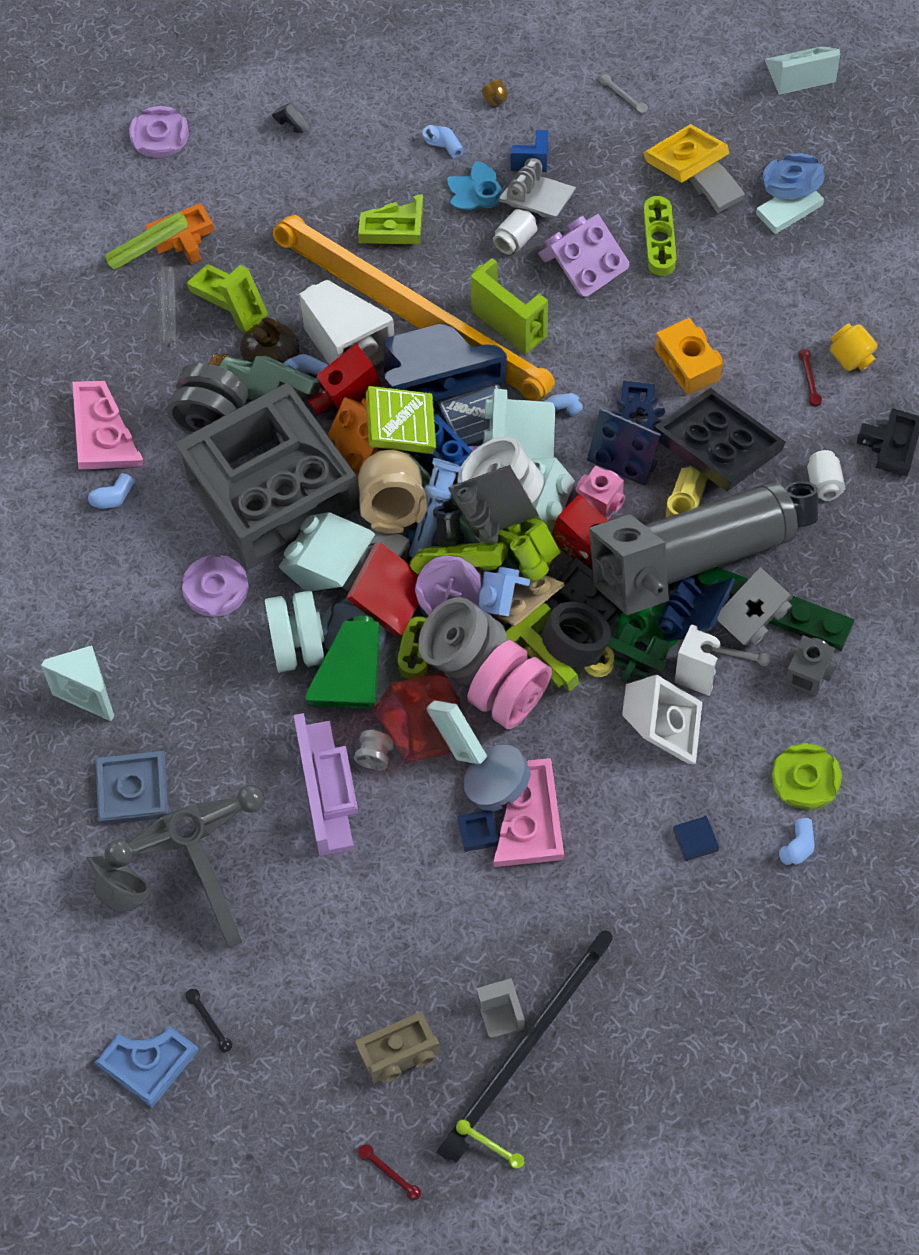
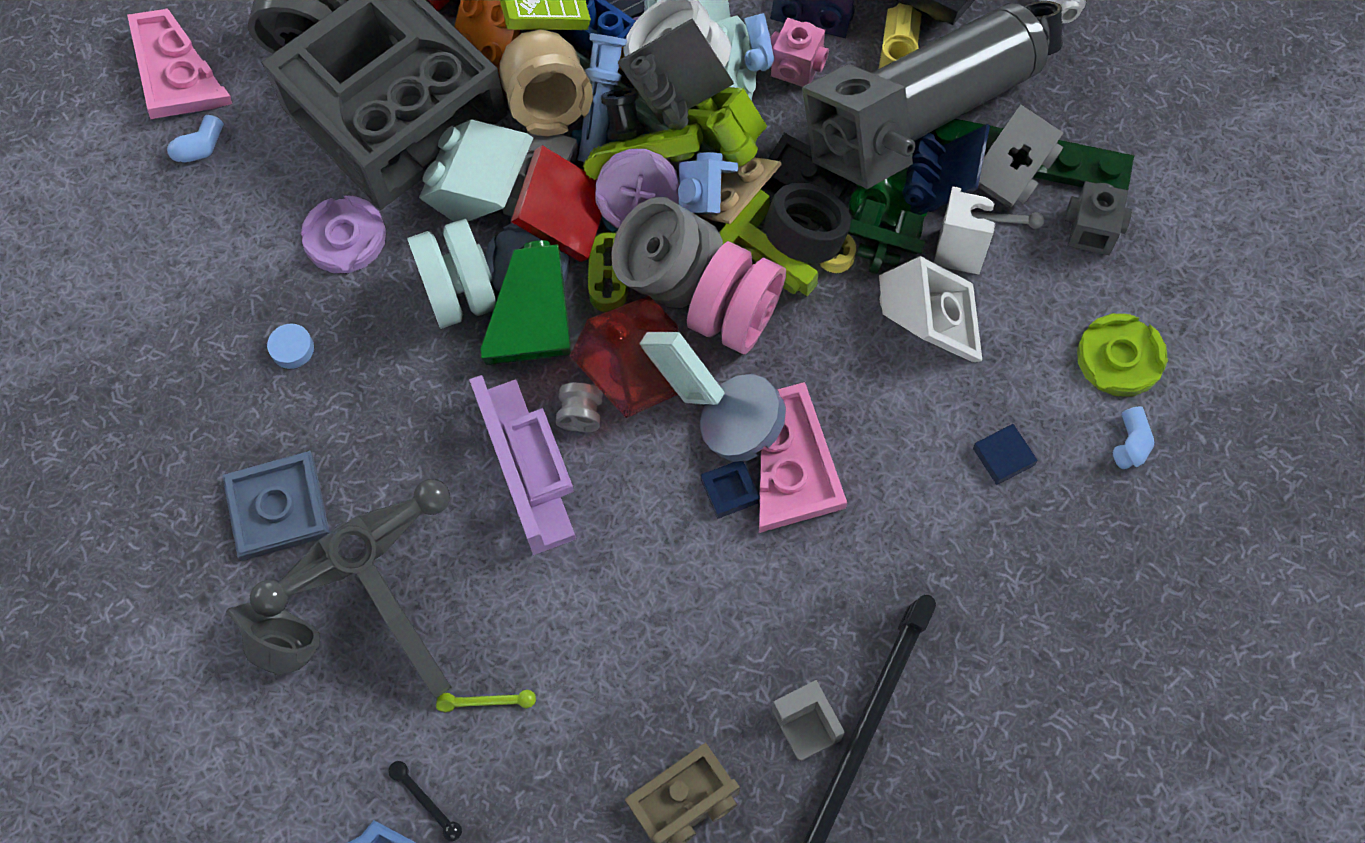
camera: 10 degrees left, 5 degrees up
(79, 681) = (184, 378): light aqua slope -> none
(161, 667) = (290, 346): none -> light blue tile
(236, 953) = (447, 701): none -> lime hinge
(570, 482) = (761, 55): none -> light blue arm
(572, 529) = (780, 97): red torso -> none

